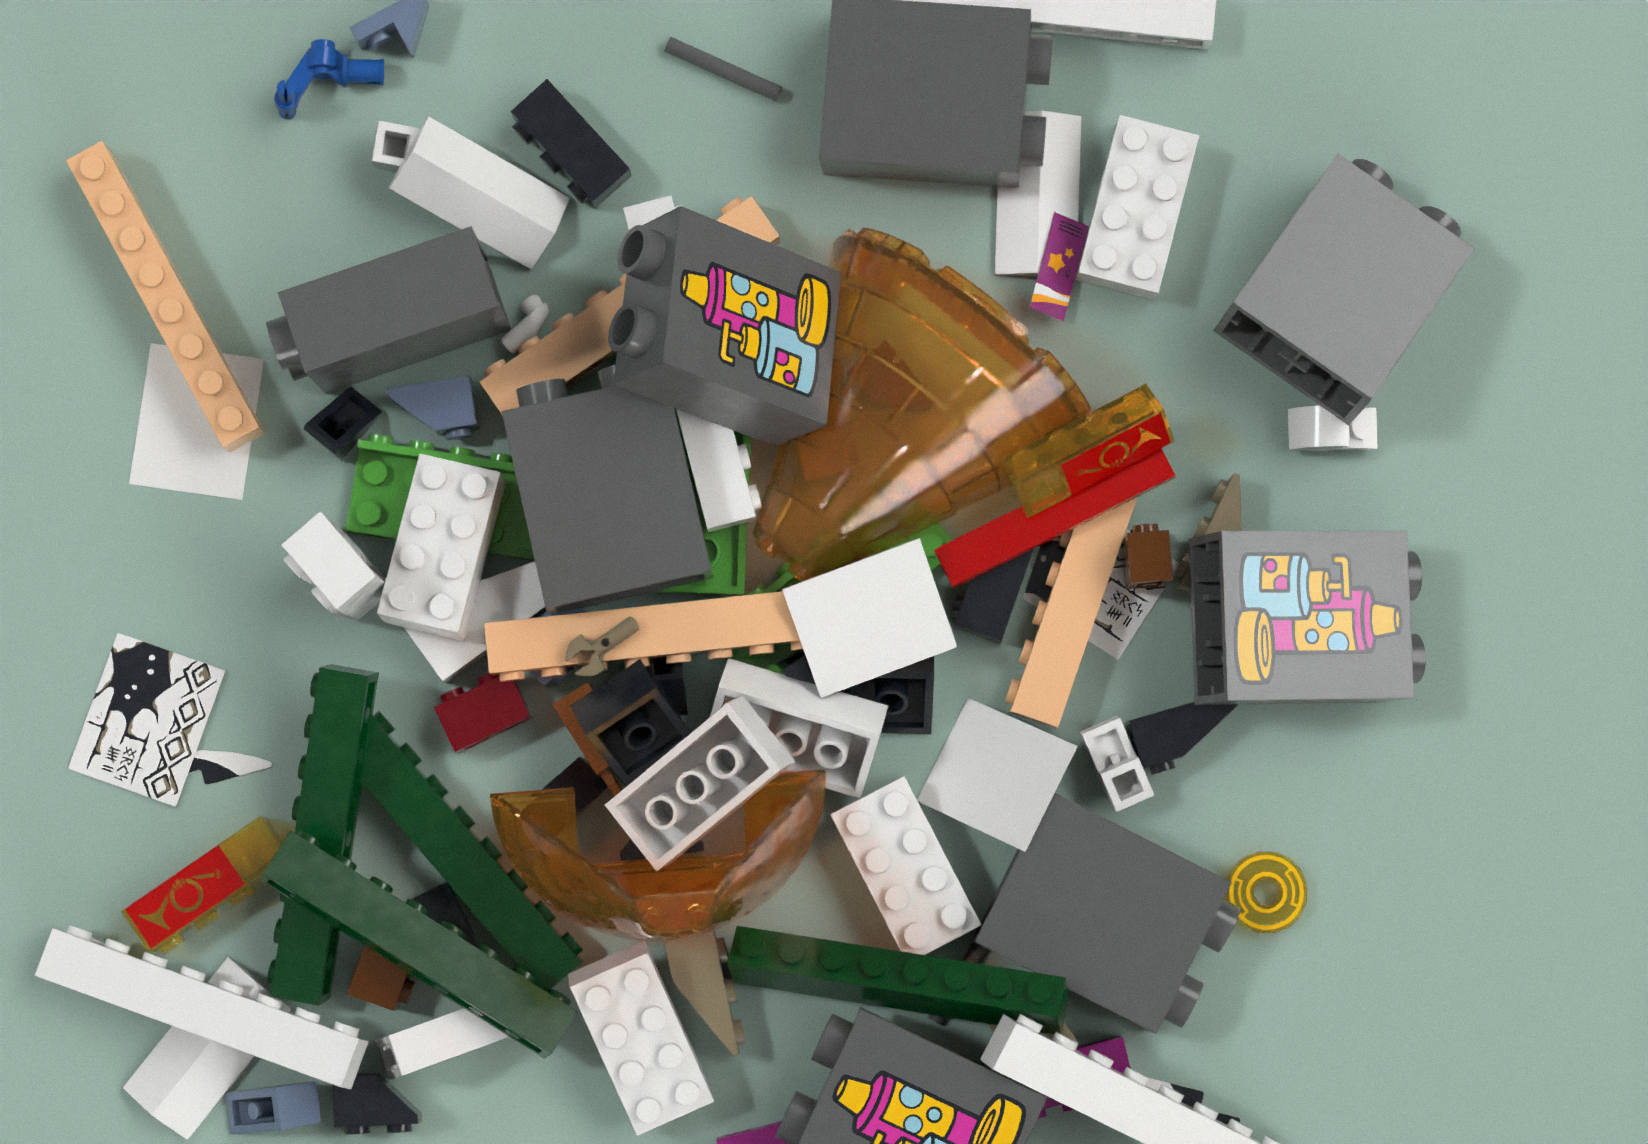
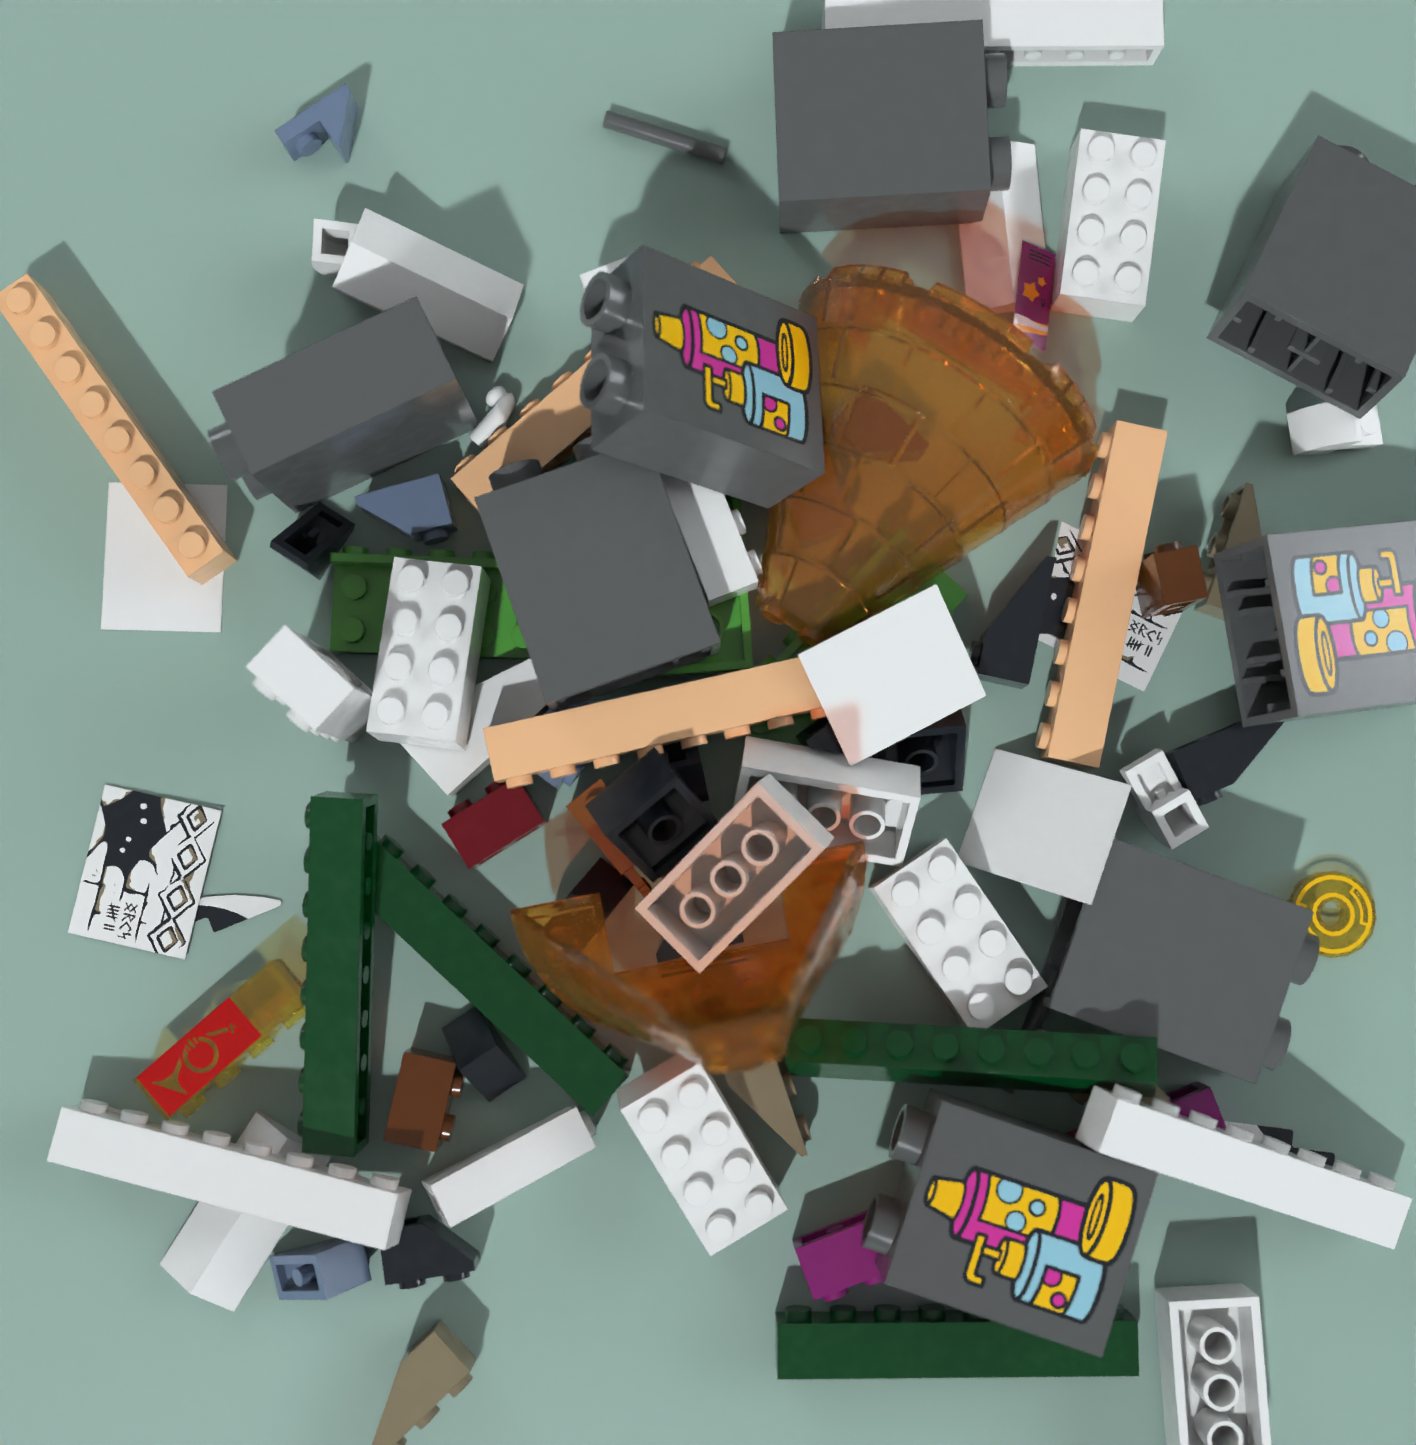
camera: 10 degrees left, 0 degrees up
(324, 62) = (254, 175): blue pin -> none
(419, 944) = (451, 1082): dark green brick -> none
(569, 145) = (517, 228): black brick -> none
(600, 646) = (610, 738): dark tan bar -> none
(1016, 534) = (1068, 545): red tile -> none
(1087, 450) = (1098, 473): clear yellow brick -> none

